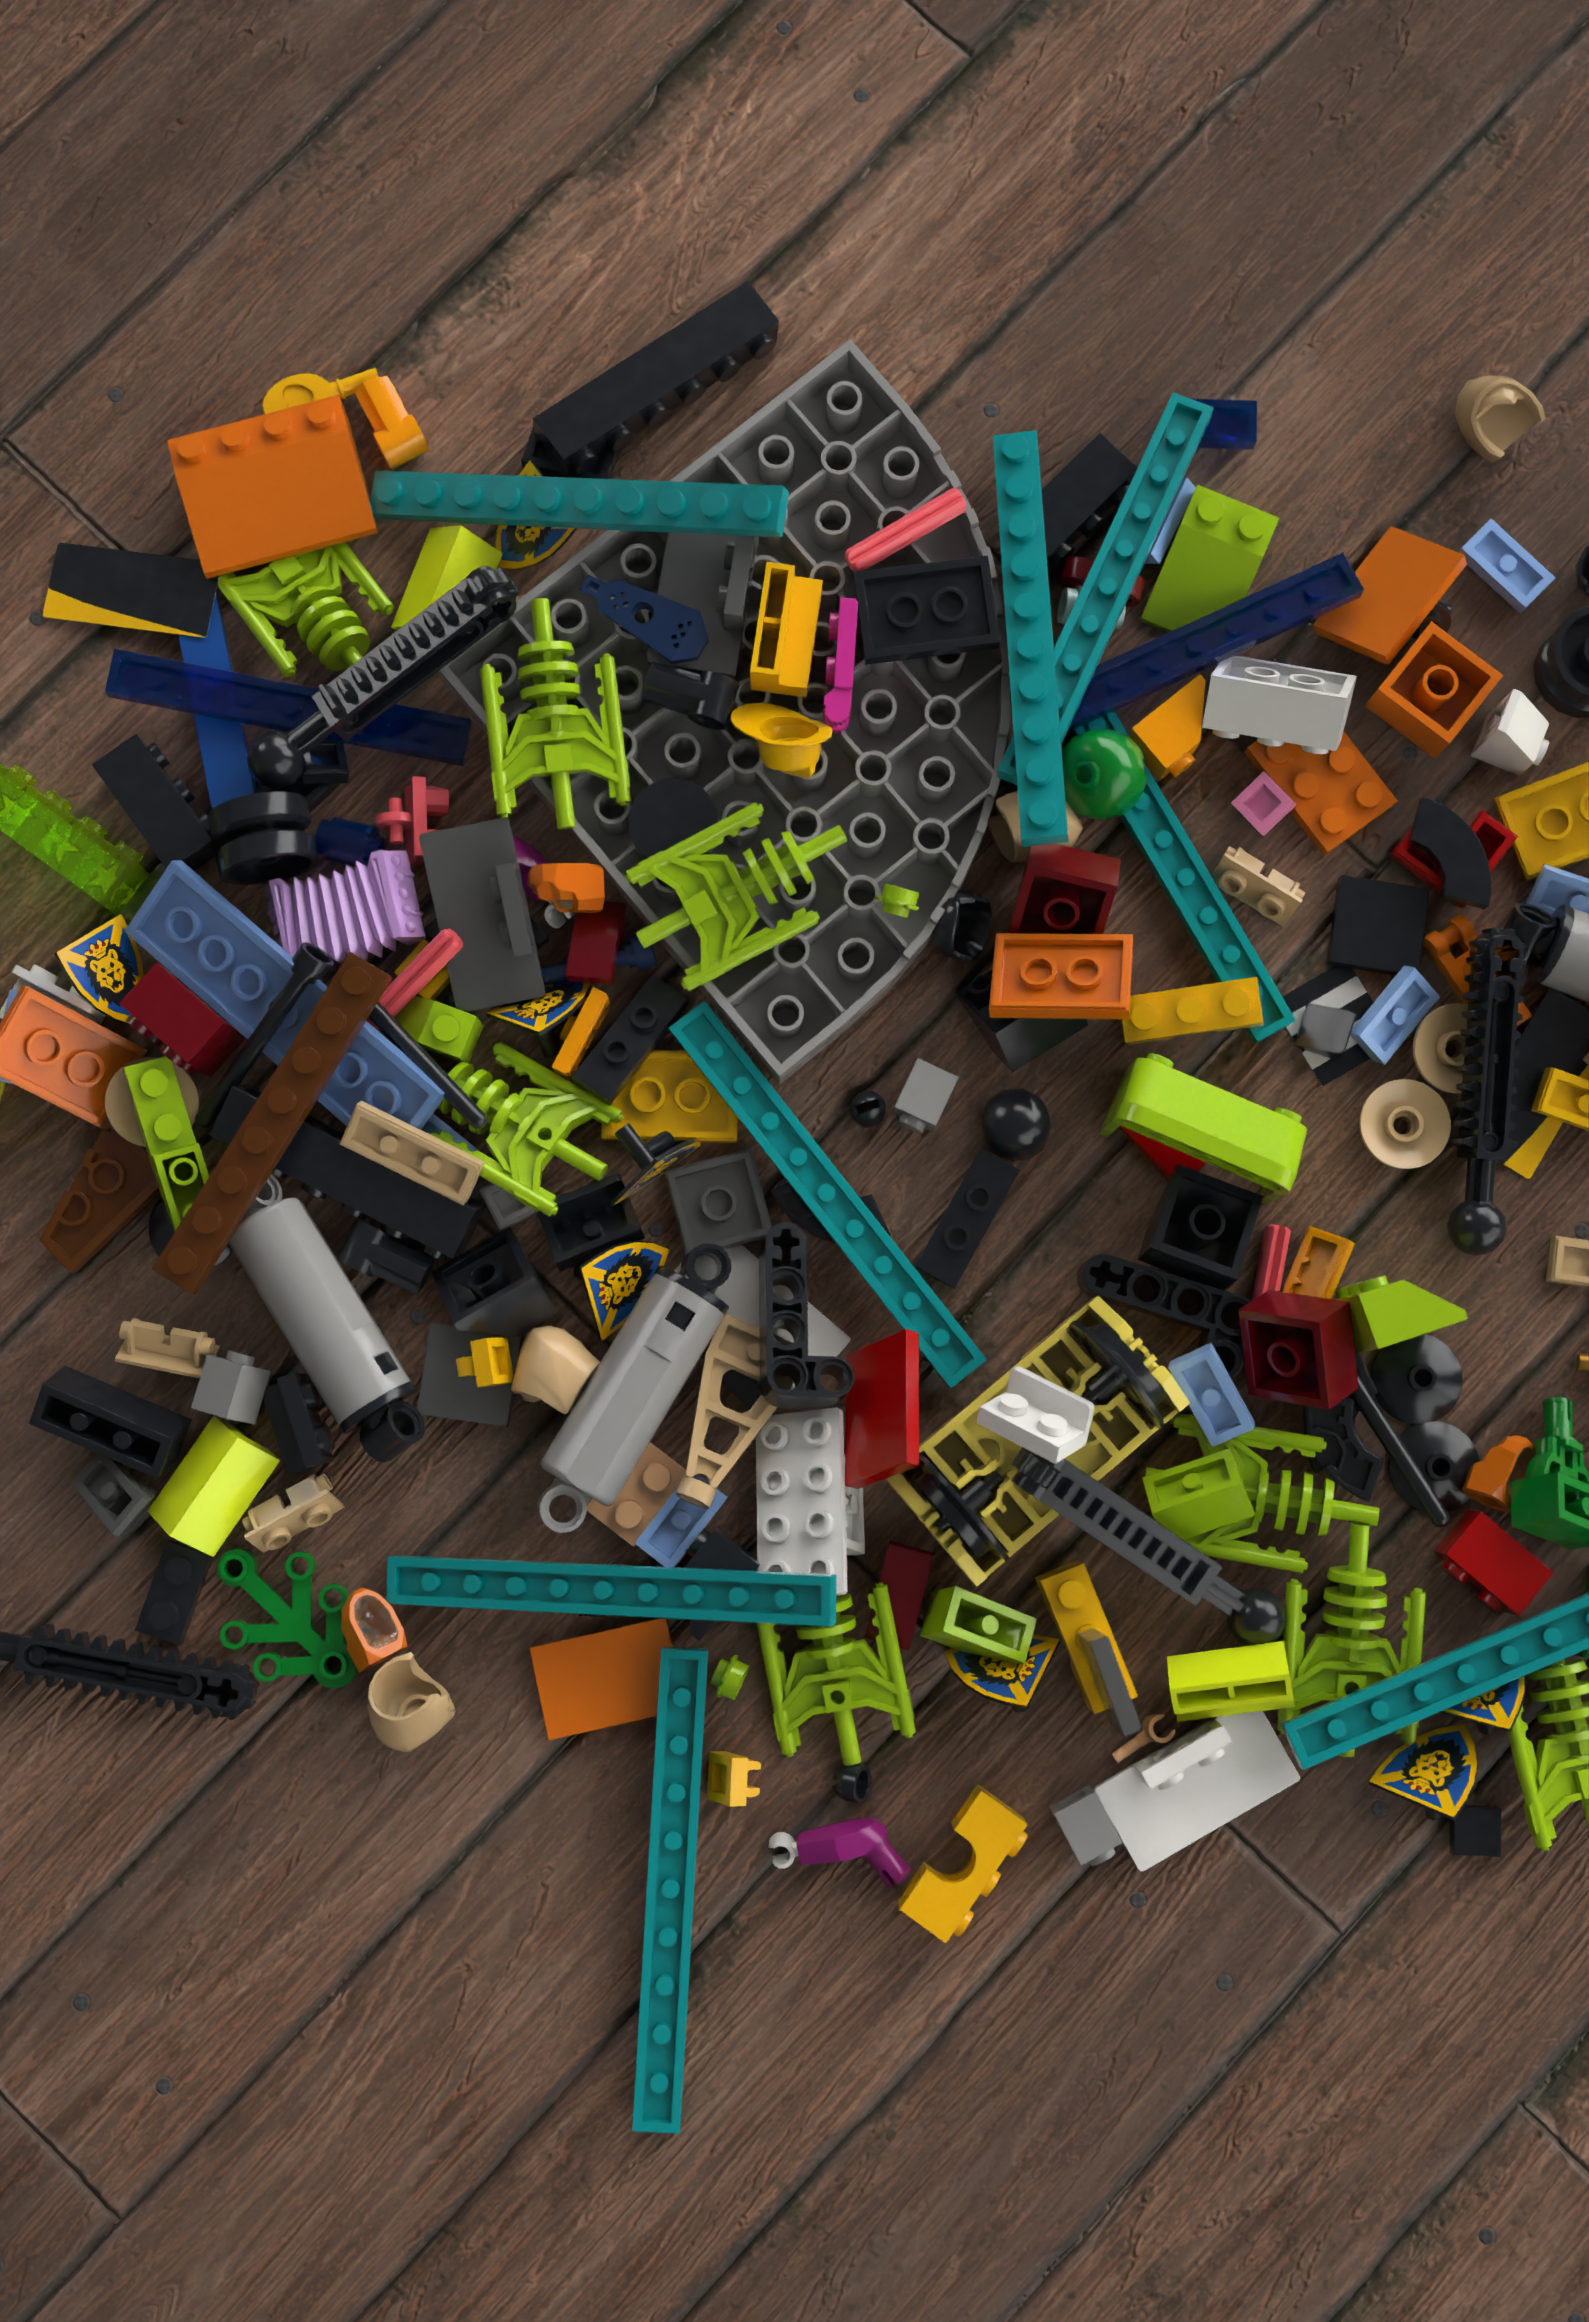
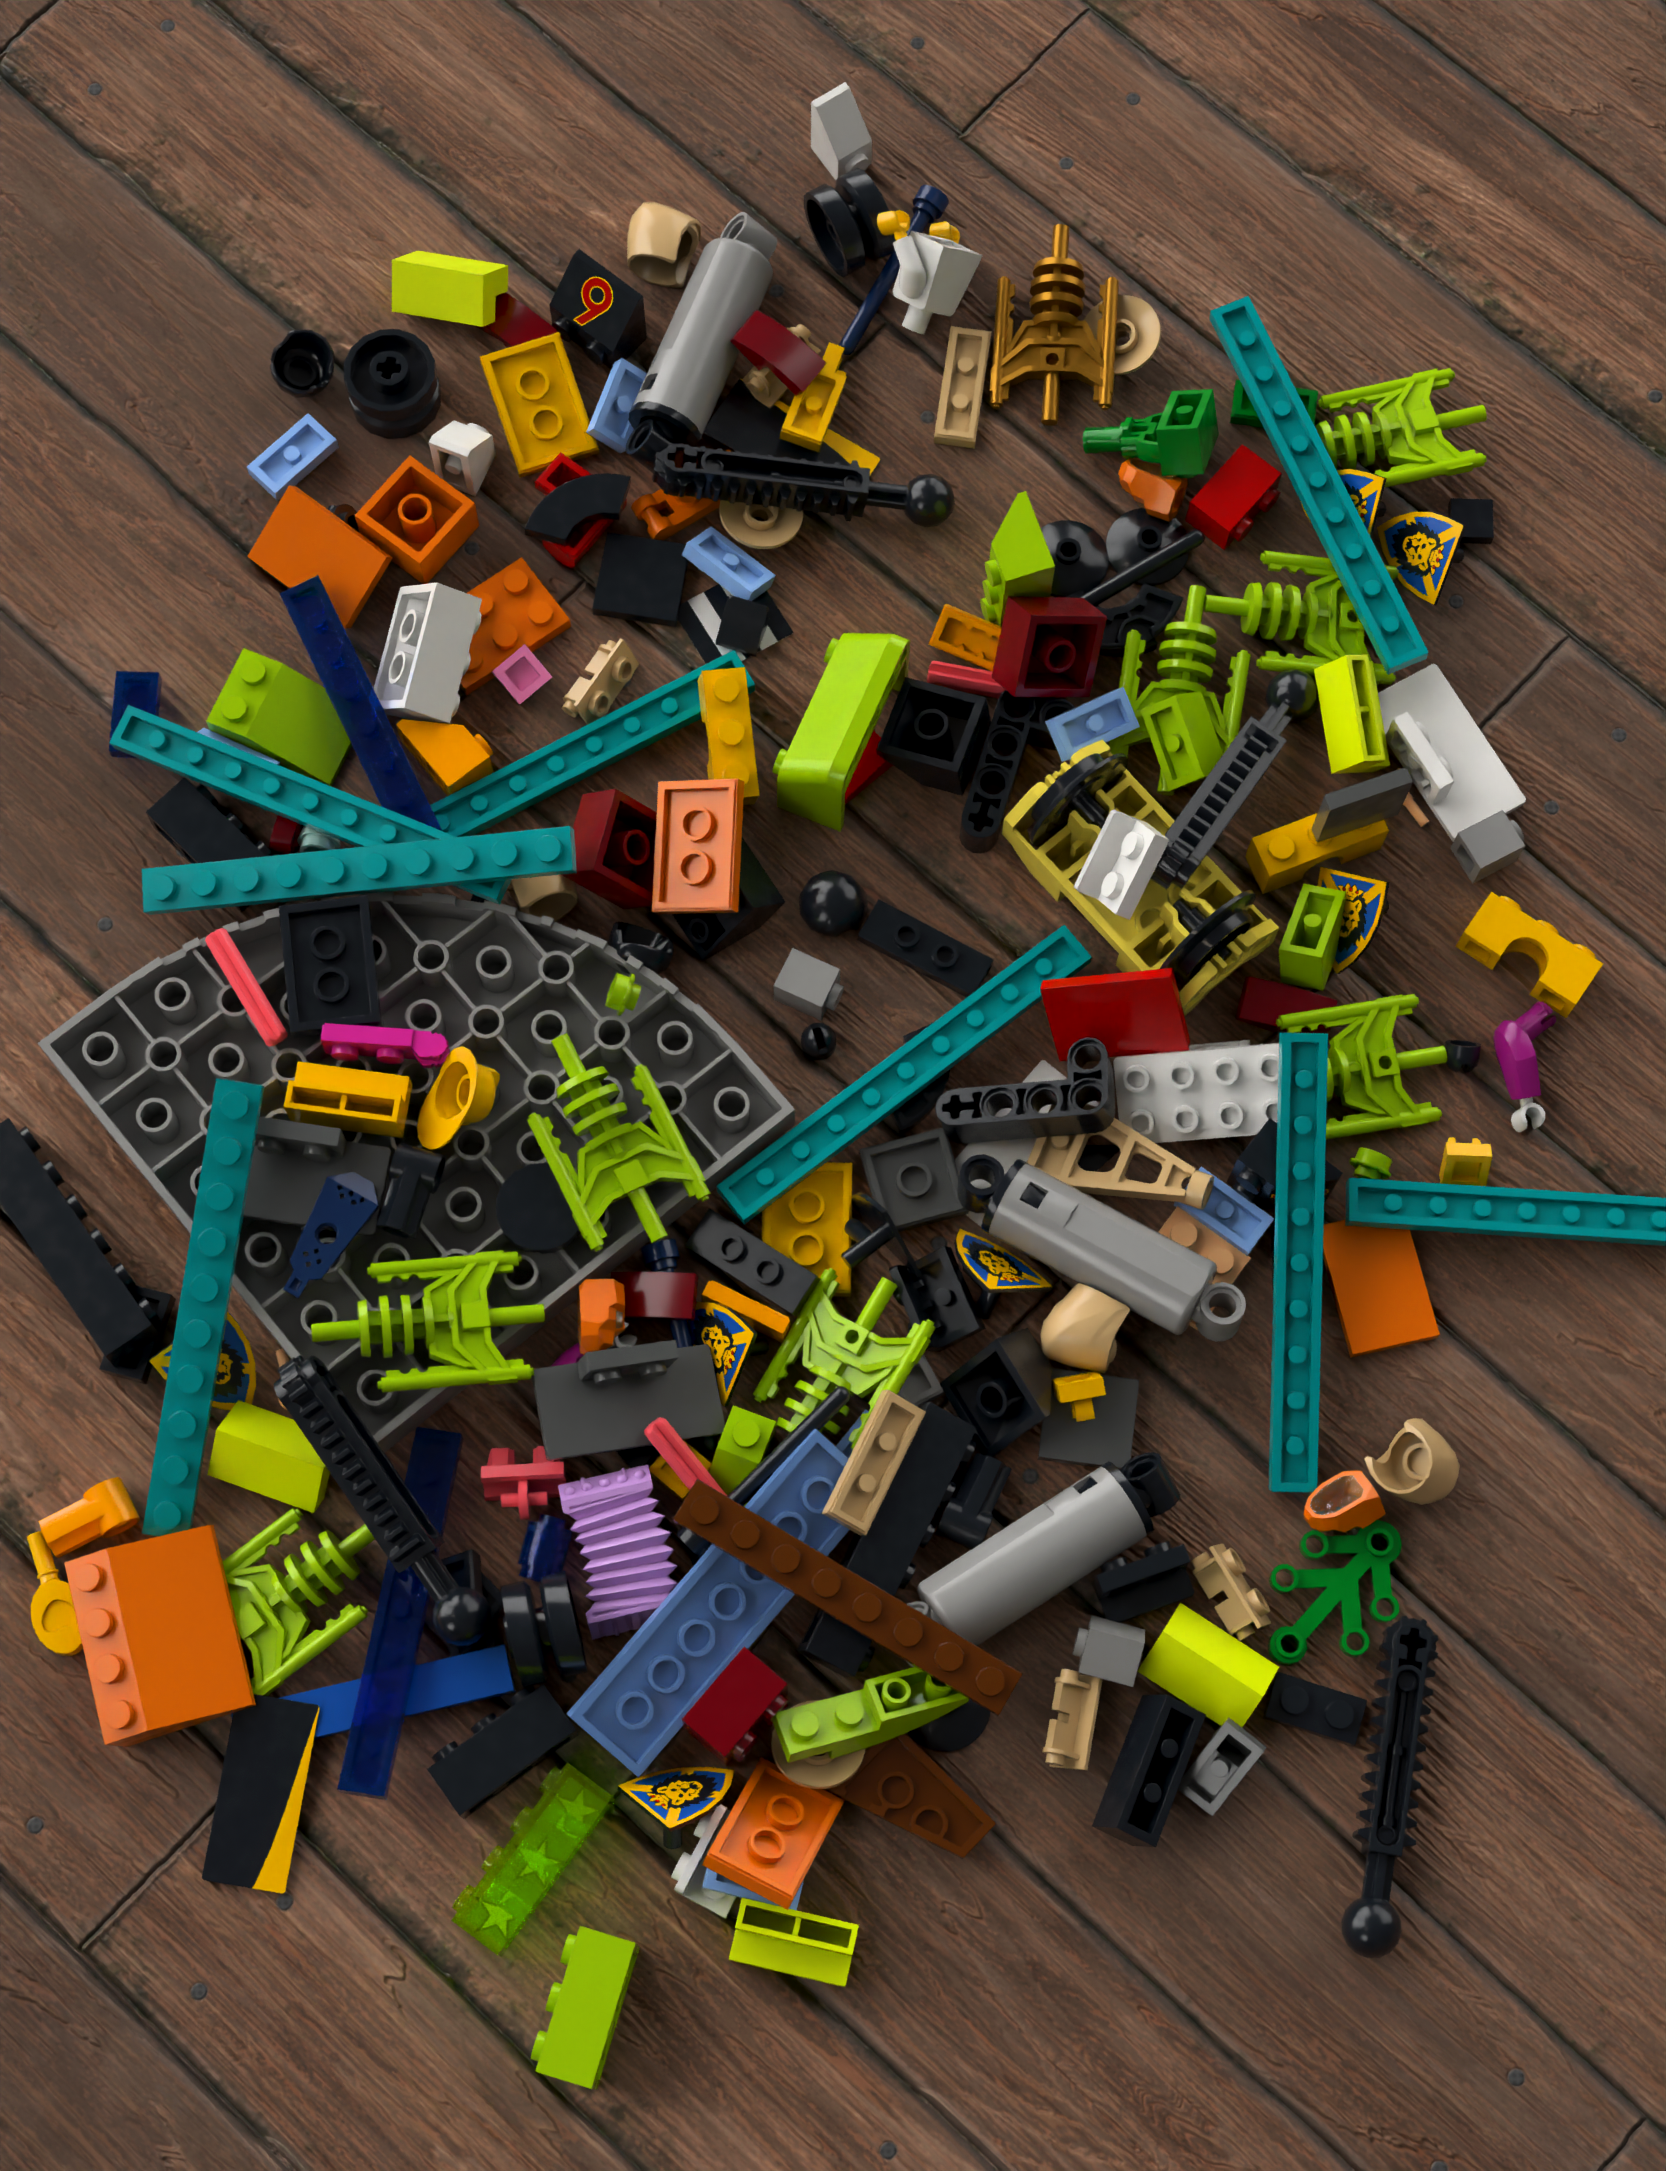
camera: 90 degrees left, 10 degrees down
(309, 966) = (686, 1562): black piece -> none
(1103, 774) = (491, 806): green cylinder -> none
(1425, 1118) = (836, 542): tan dish -> none
(1495, 414) = (140, 461): tan piece -> none

